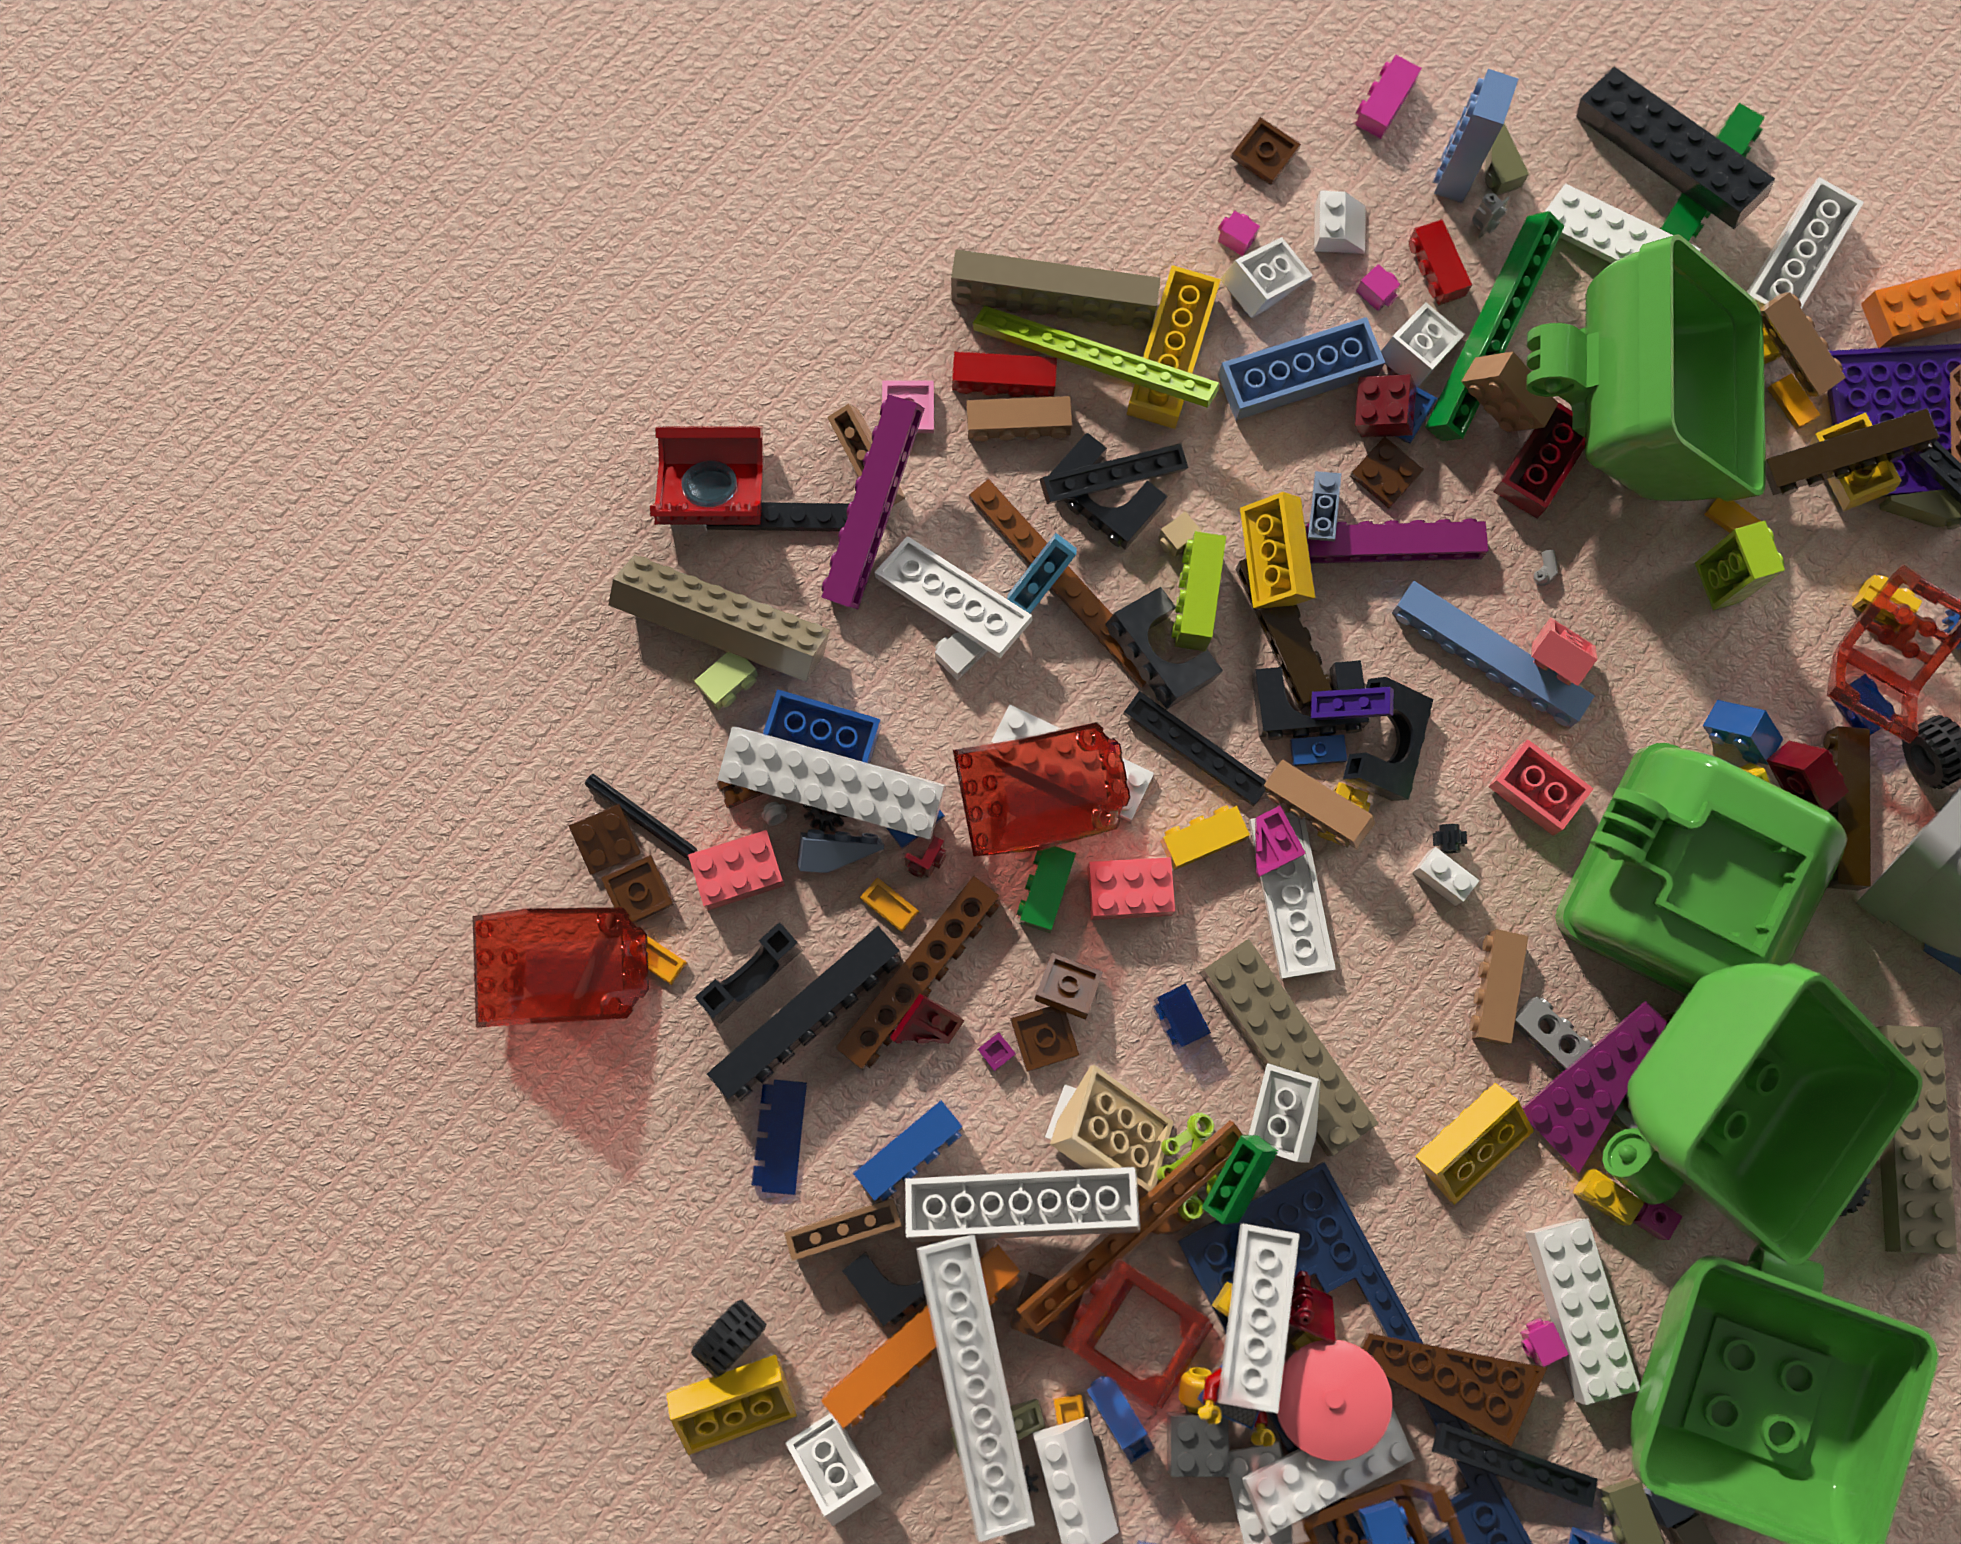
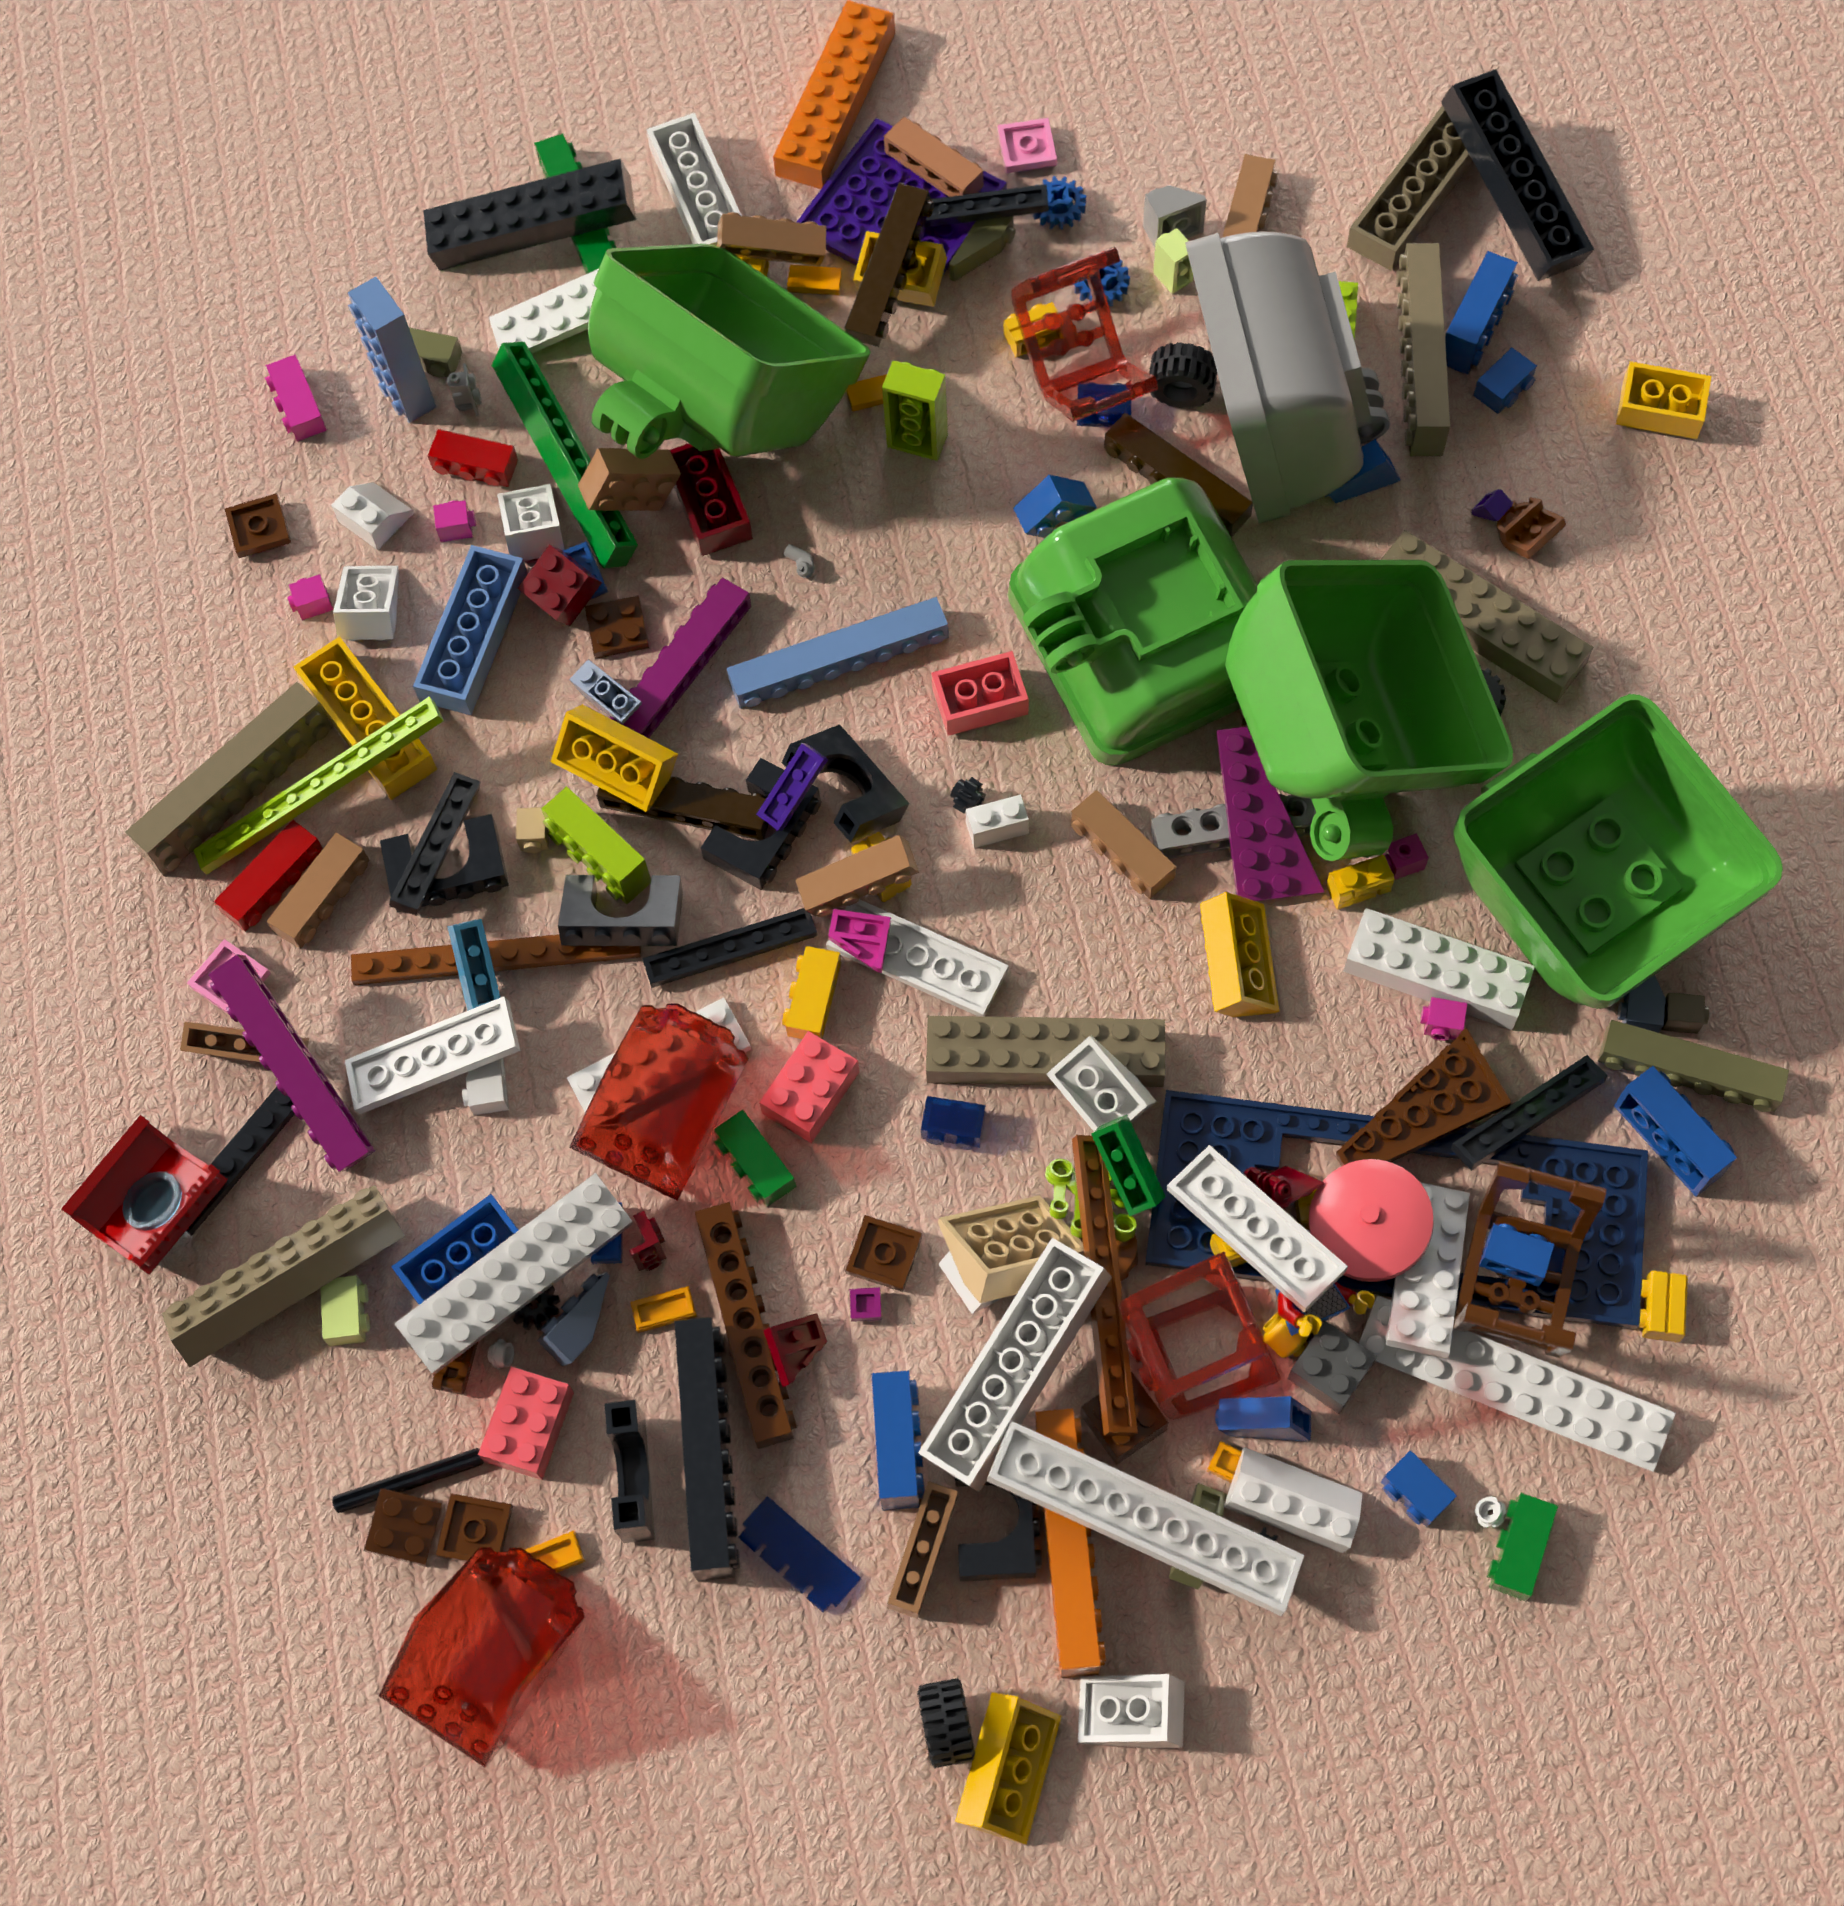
camera: 45 degrees left, 10 degrees down
(1068, 986) = (854, 1199): plate -> none
(1318, 750) = (810, 848): blue plate -> none
(1563, 652) = (879, 592): coral brick -> none
(1808, 774) = (1121, 476): dark red brick -> none

